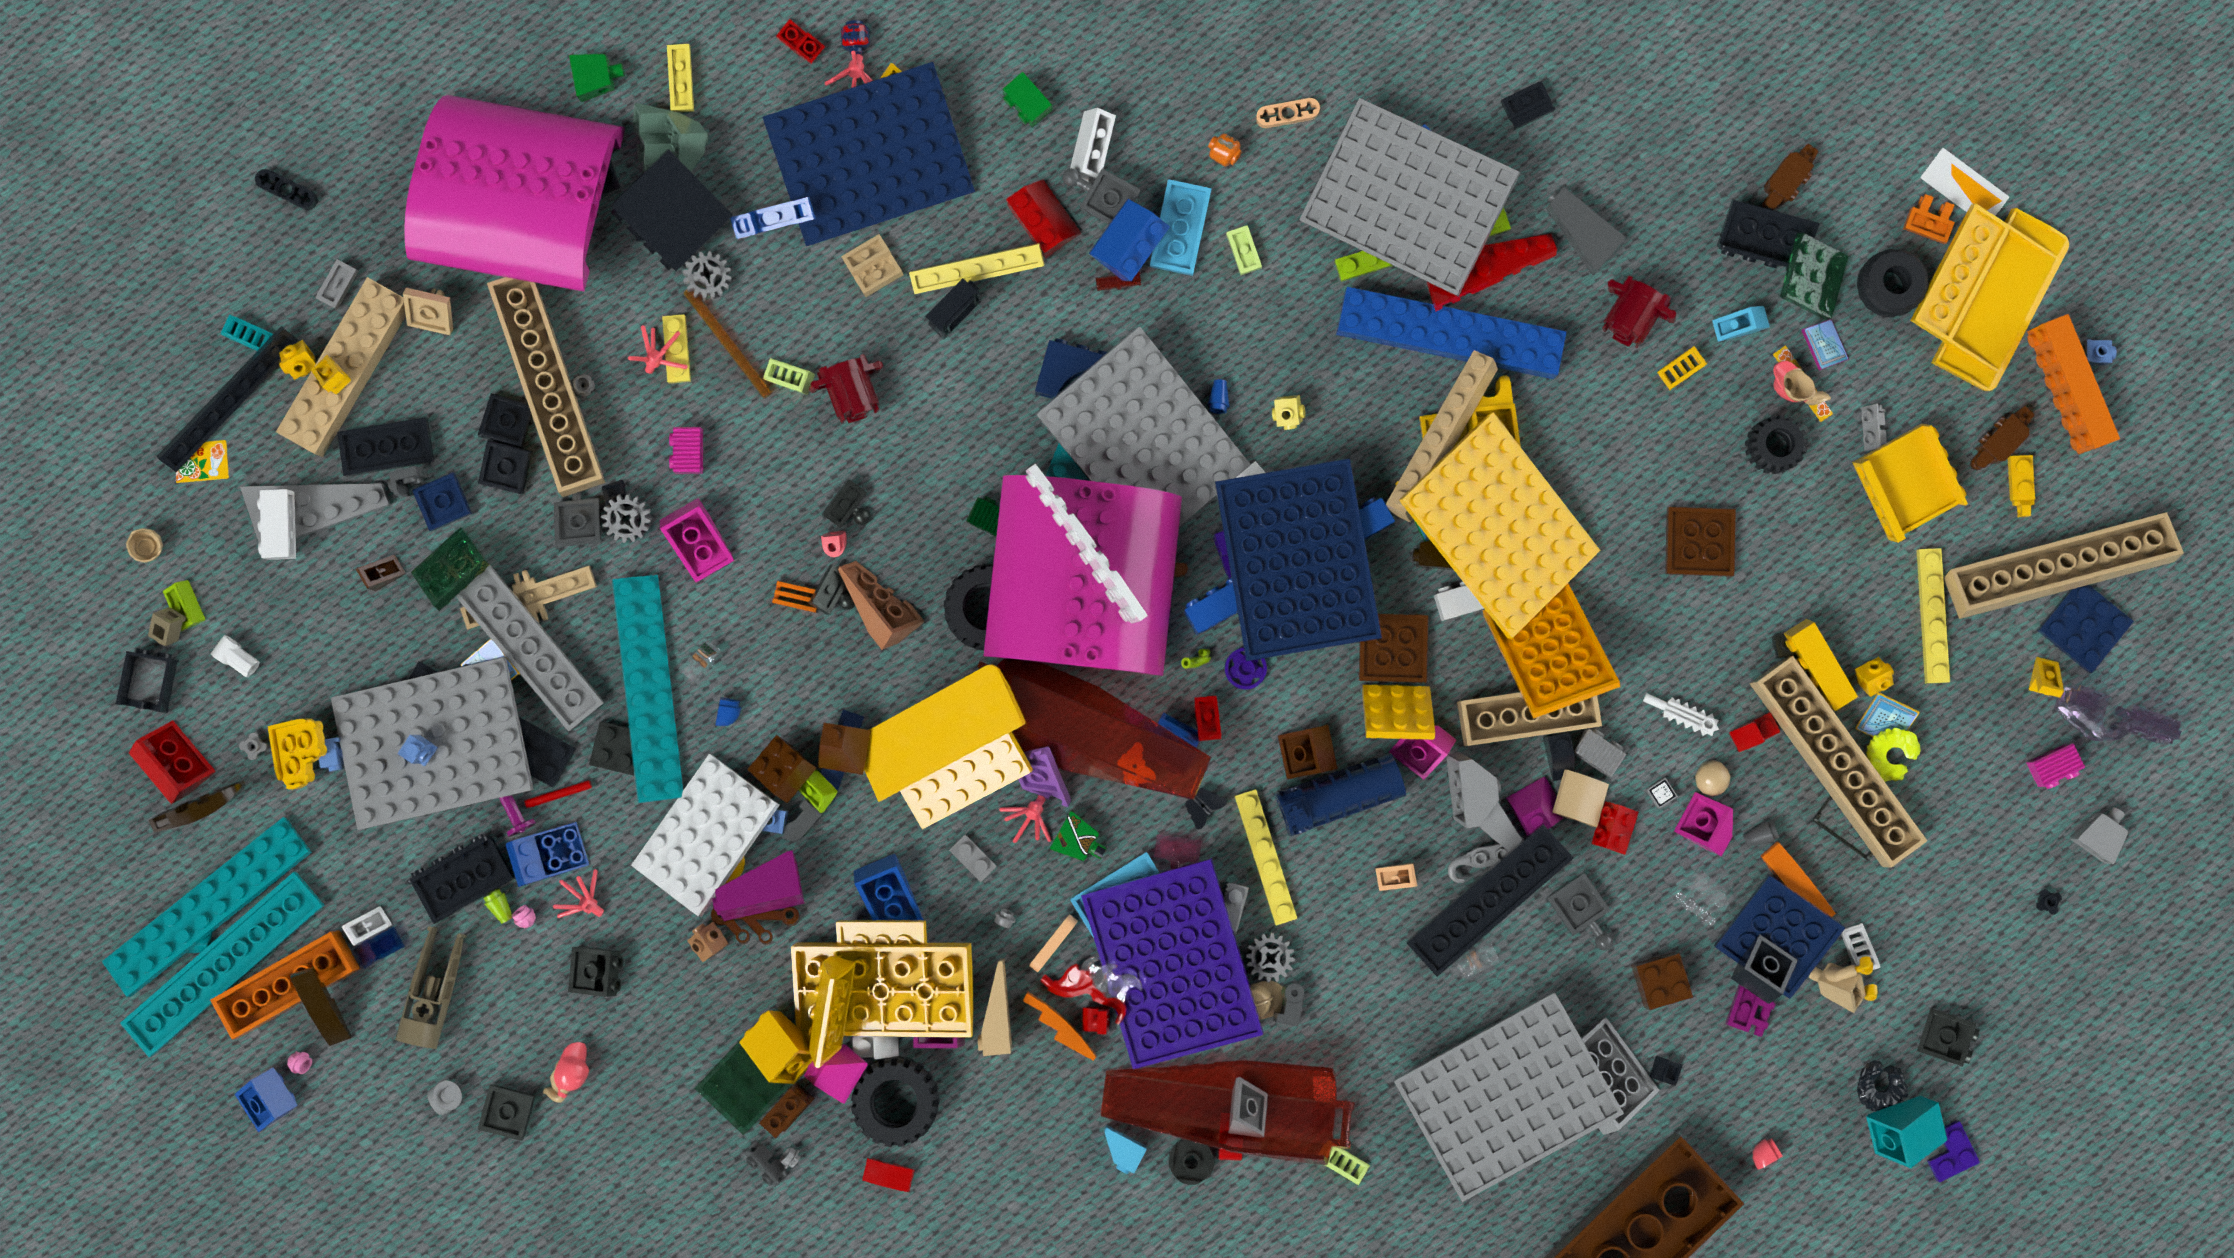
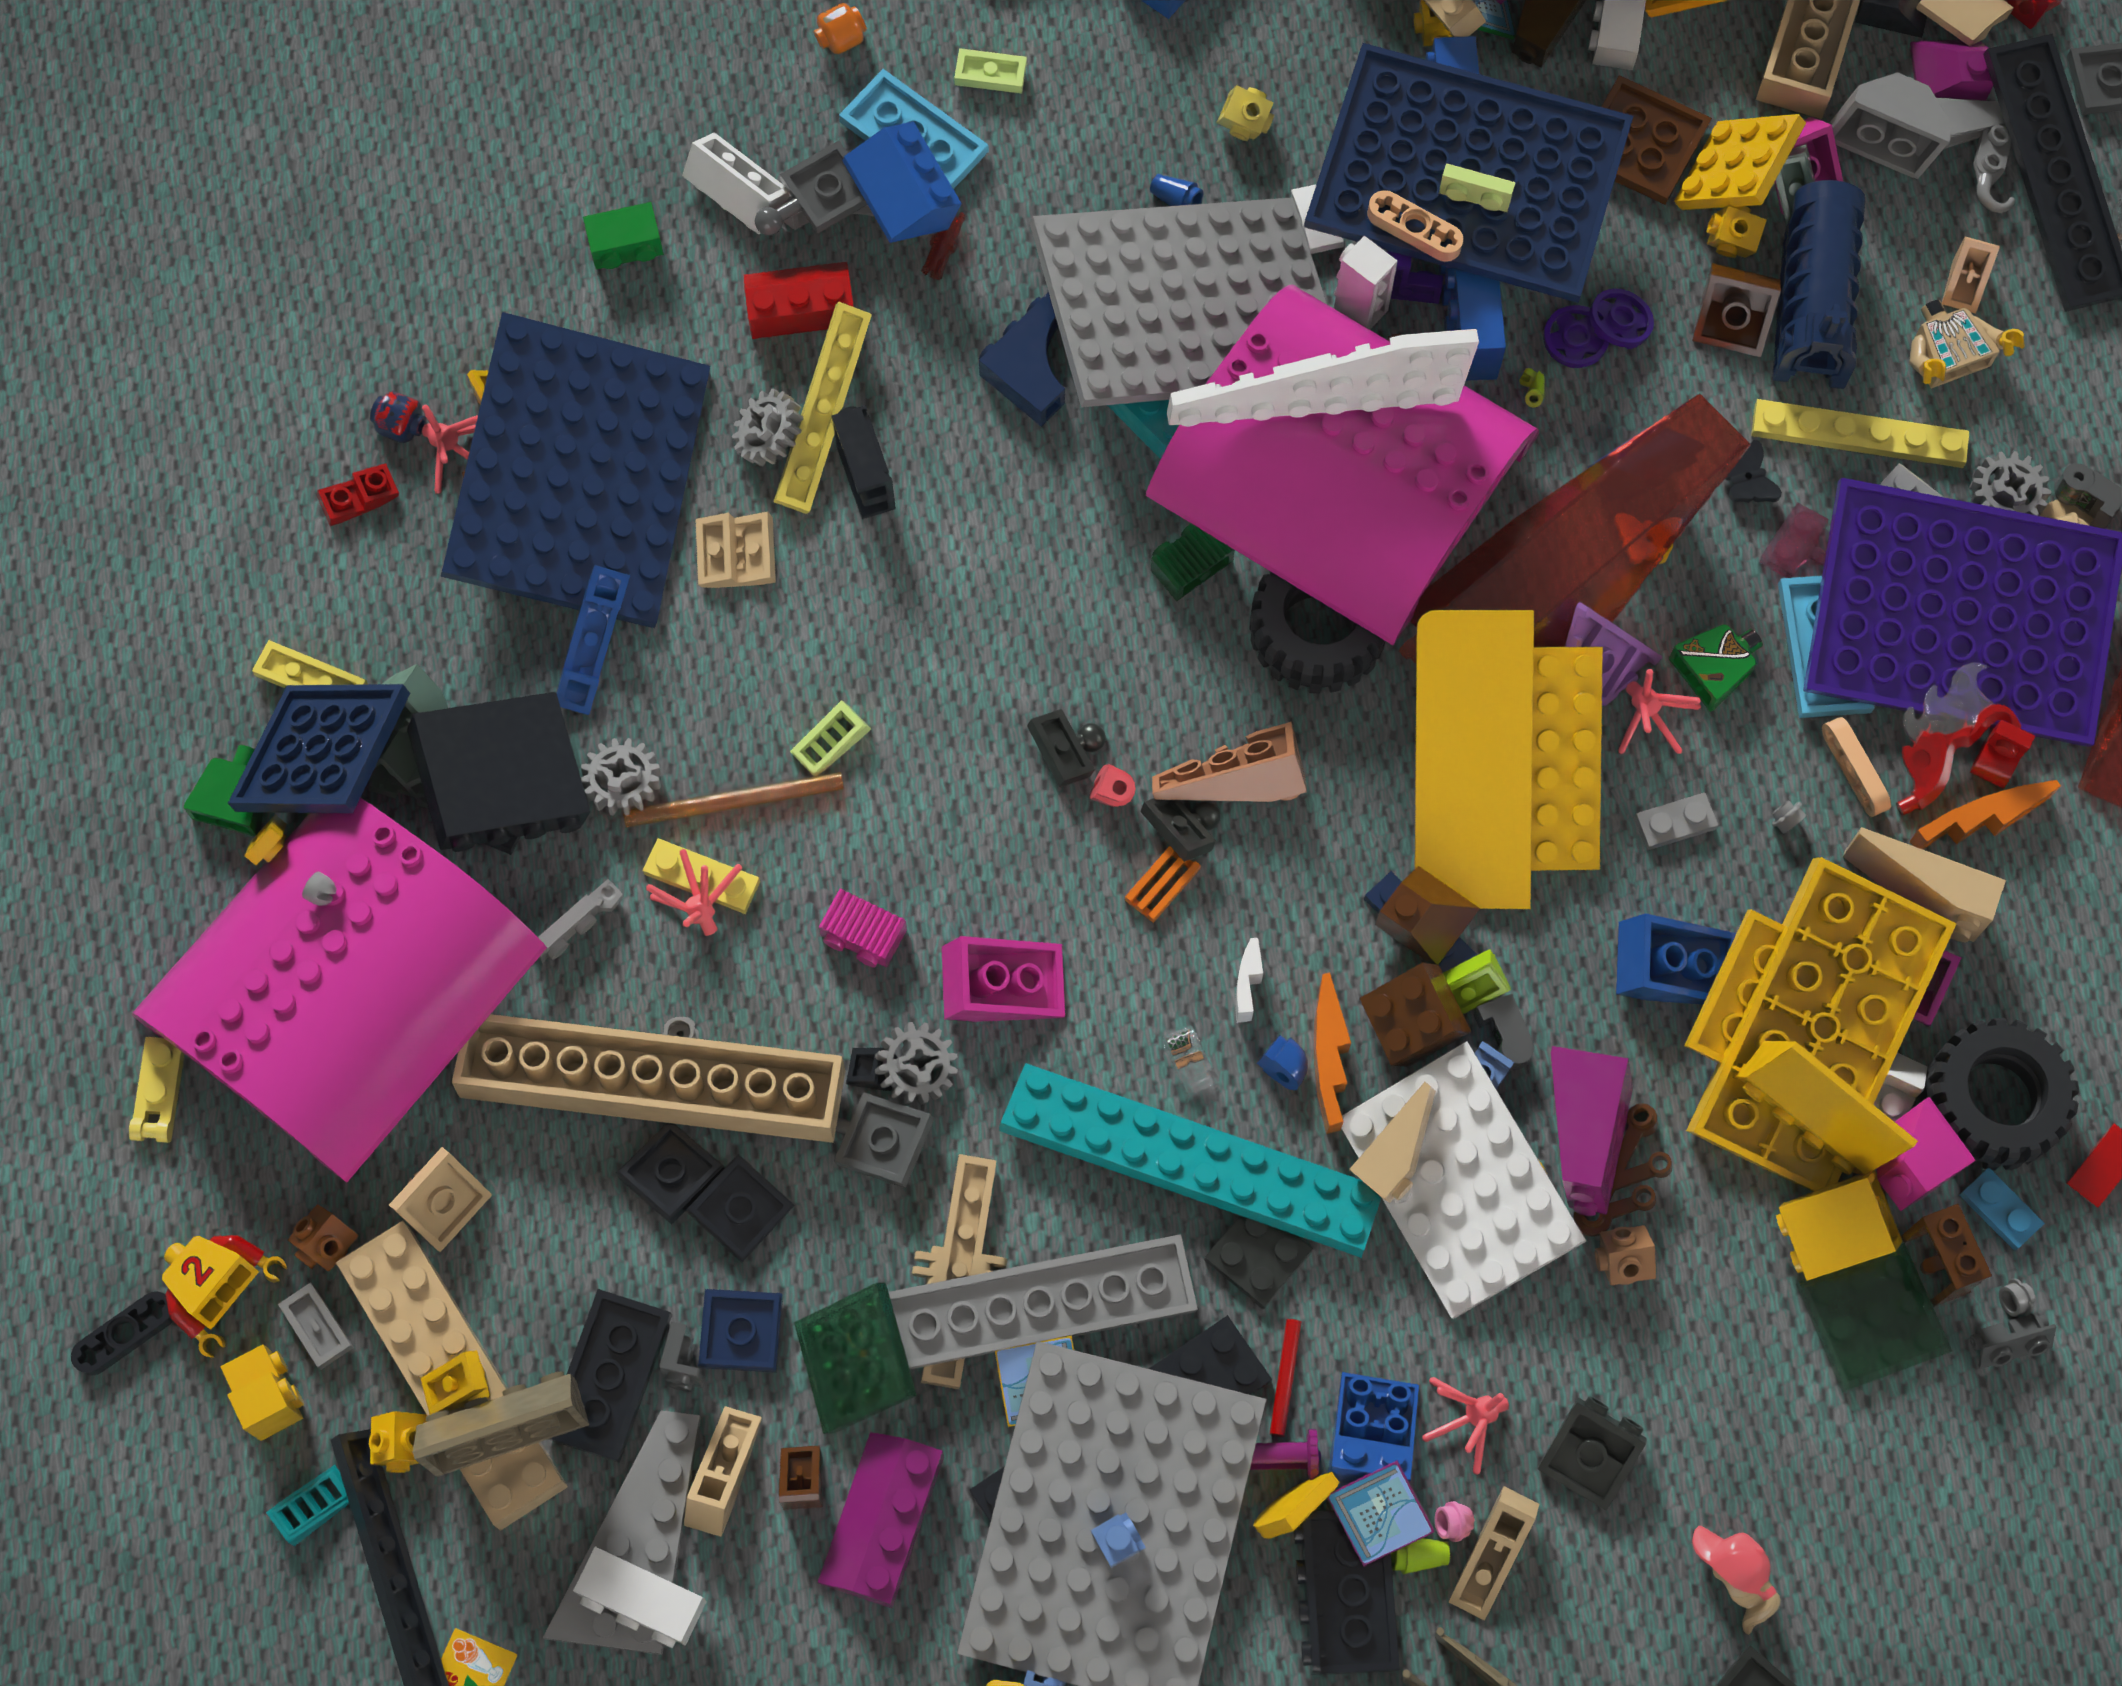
camera: 60 degrees left, 15 degrees down
(287, 277) = (261, 1393): none -> yellow brick
(316, 407) = (499, 1425): none -> dark tan slope
(330, 217) = (208, 1280): none -> yellow torso
(365, 531) = (721, 1472): none -> tan slope
(380, 262) = (321, 1239): none -> dark orange brick
(381, 624) = (881, 1518): none -> magenta slope
(413, 132) = (157, 1090): none -> light yellow plate
(485, 830) = (1294, 1506): none -> yellow tile
(502, 876) = (1380, 1513): none -> piece
(519, 944) = (1494, 1552): none -> tan slope
(536, 159) = (318, 889): none -> light grey hinge
(568, 111) = (267, 841): none -> yellow plate
(617, 298) = (579, 919): none -> light grey hinge
(630, 109) = (319, 748): none -> dark blue plate
(696, 795) = (1395, 1152): none -> tan slope
(750, 729) = (1329, 1041): none -> orange slope
(768, 668) = (1249, 973): none -> white slope
(836, 1129) = (2001, 1209): none -> dark azure plate
(849, 388) = (900, 653): dark red container -> none
(949, 244) = (767, 427): none -> light grey gear
(1203, 533) = (1364, 282): none -> brick
(1207, 718) = (1620, 405): red plate -> none
(1233, 562) = (1418, 240): none -> light nougat beam
(1267, 688) = (1619, 319): none -> dark purple wheel
(1277, 560) = (1477, 188): none -> yellowish green plate
(1346, 887) = (1957, 344): none -> torso
(1353, 729) = (1735, 231): none -> yellow brick
(1406, 752) = (1793, 175): none -> sand green slope

